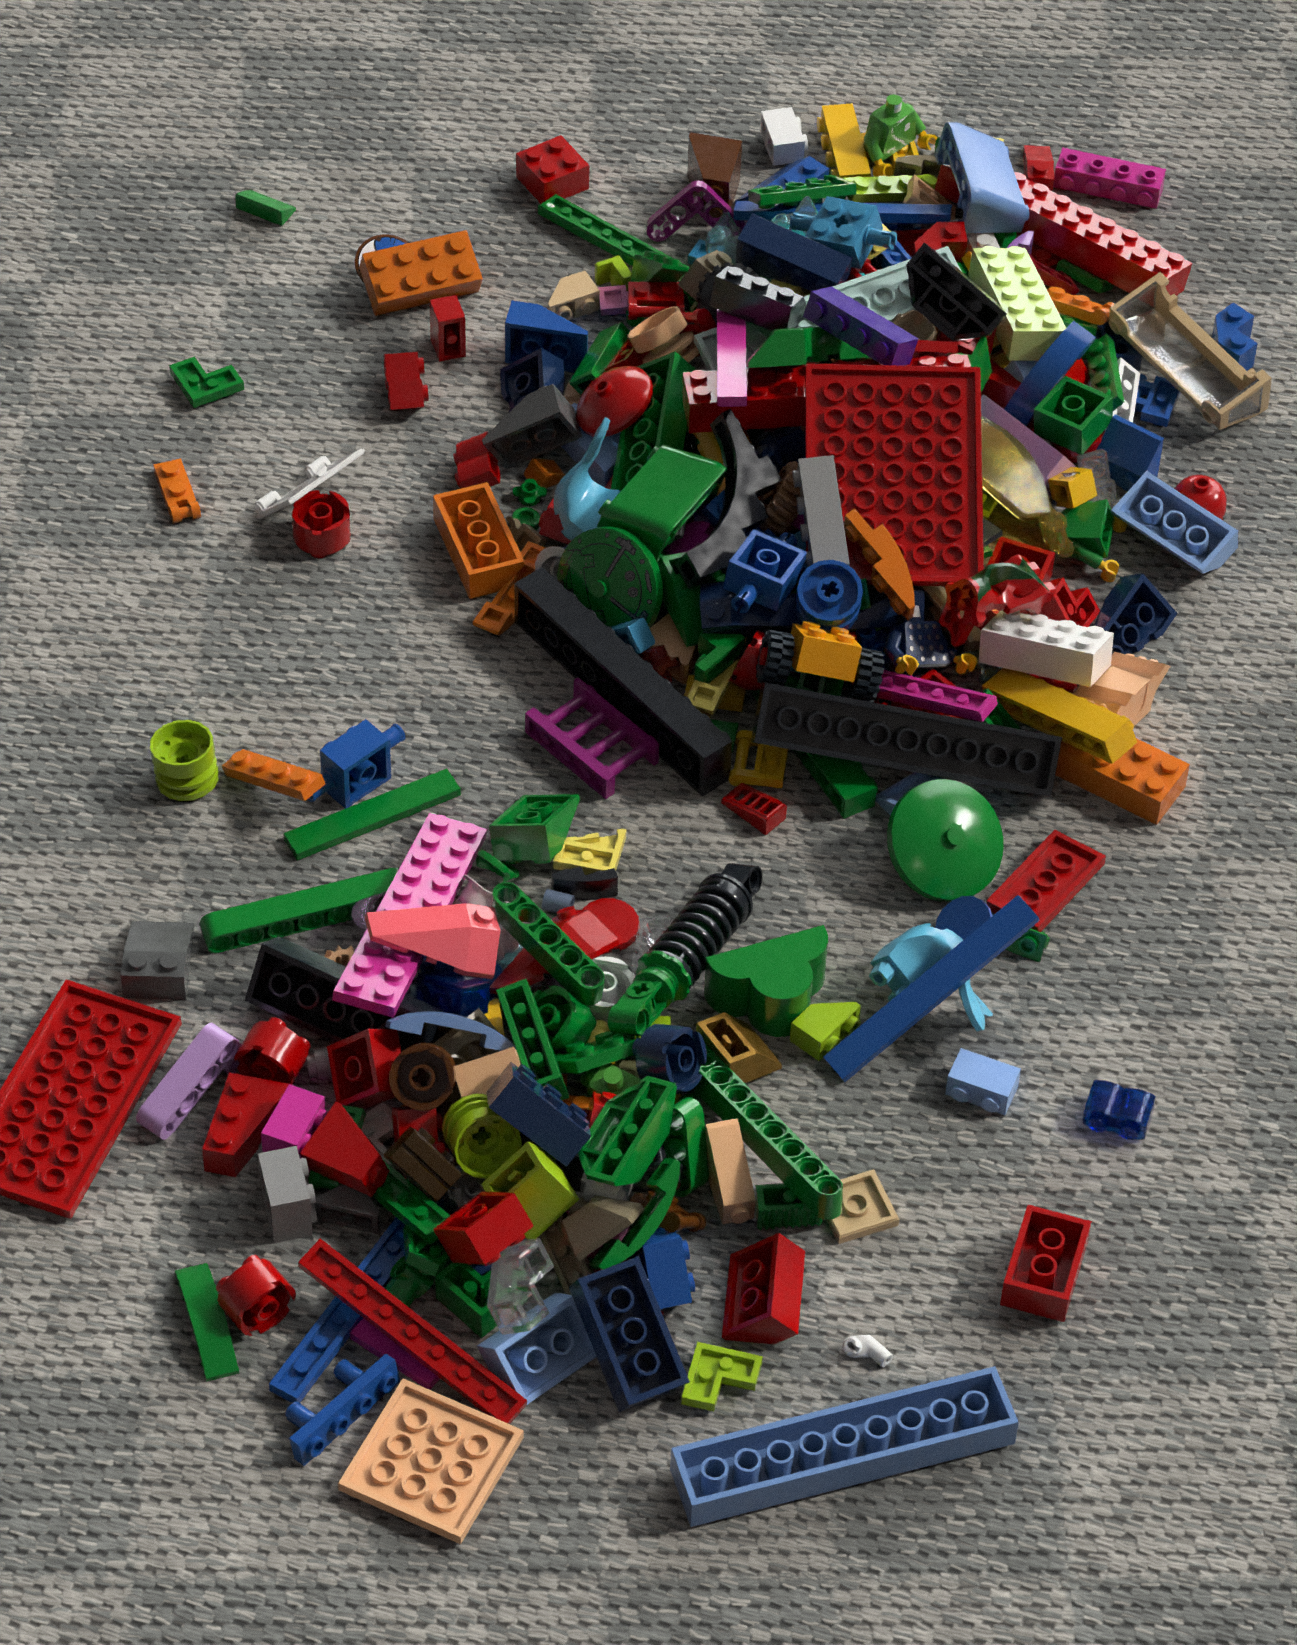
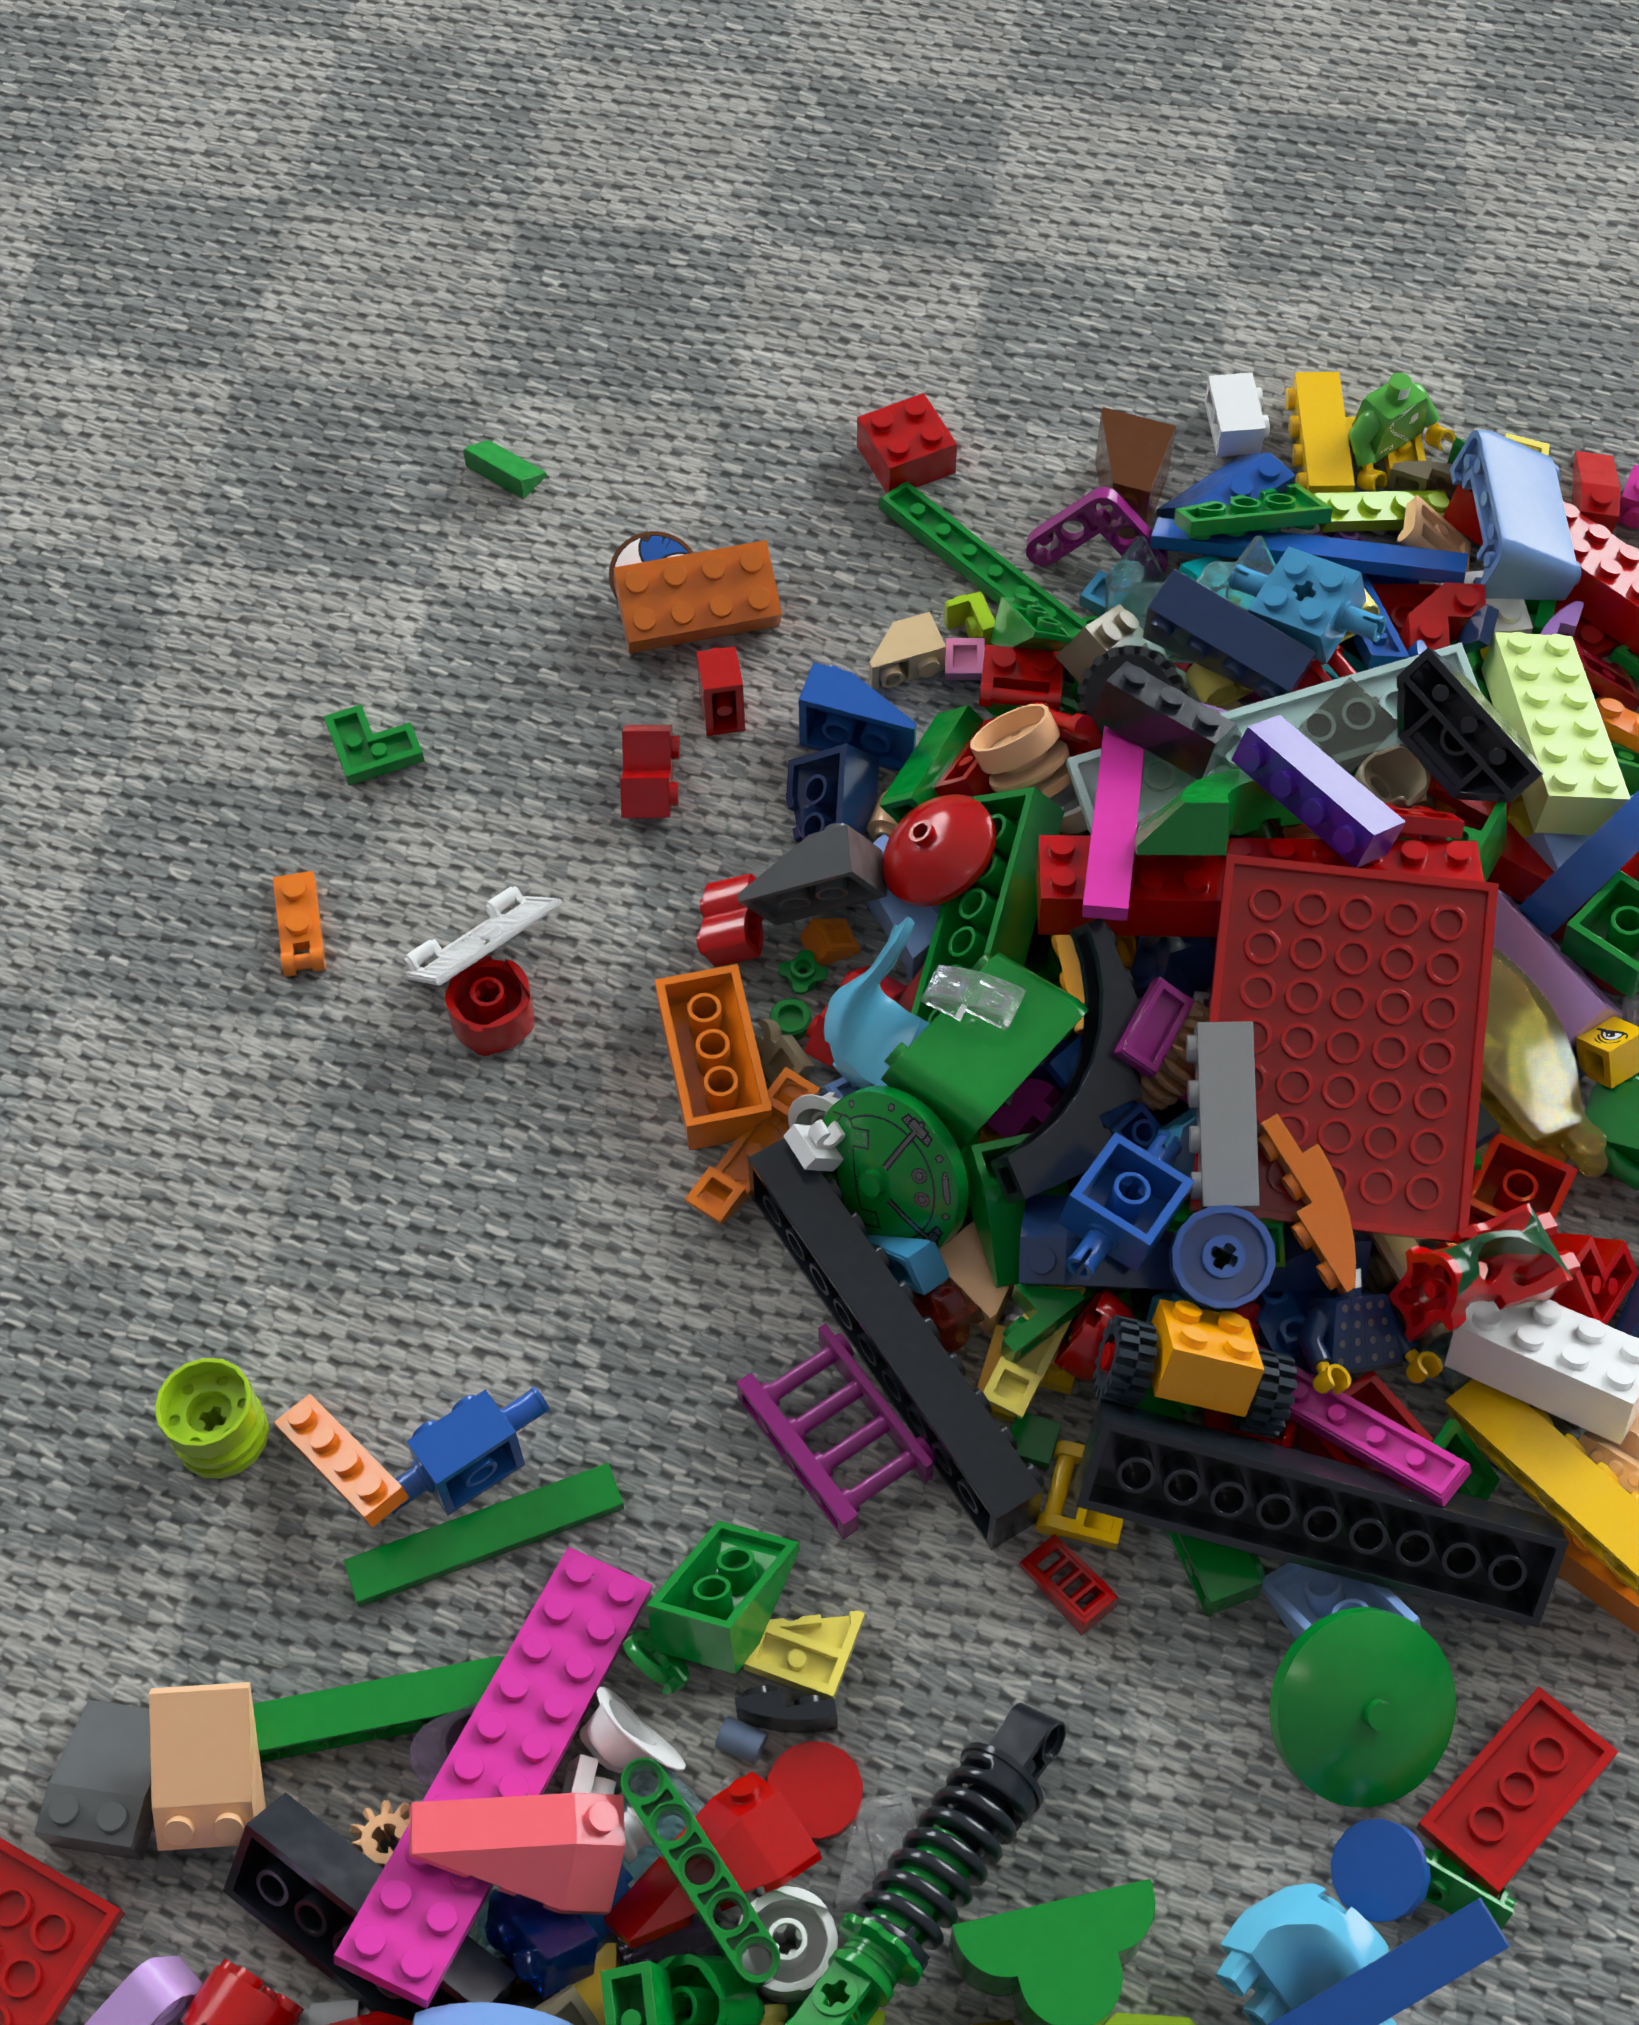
camera: 10 degrees right, 10 degrees up
(222, 929) = (203, 1765): none -> light nougat slope
(559, 569) = (816, 1145): none -> white tile
(641, 461) = (981, 994): none -> clear slope
(771, 474) = (1153, 1027): none -> magenta tile
(882, 296) = (1349, 725): none -> clear smoke piece
(963, 248) = (1479, 629): none -> dark blue tile

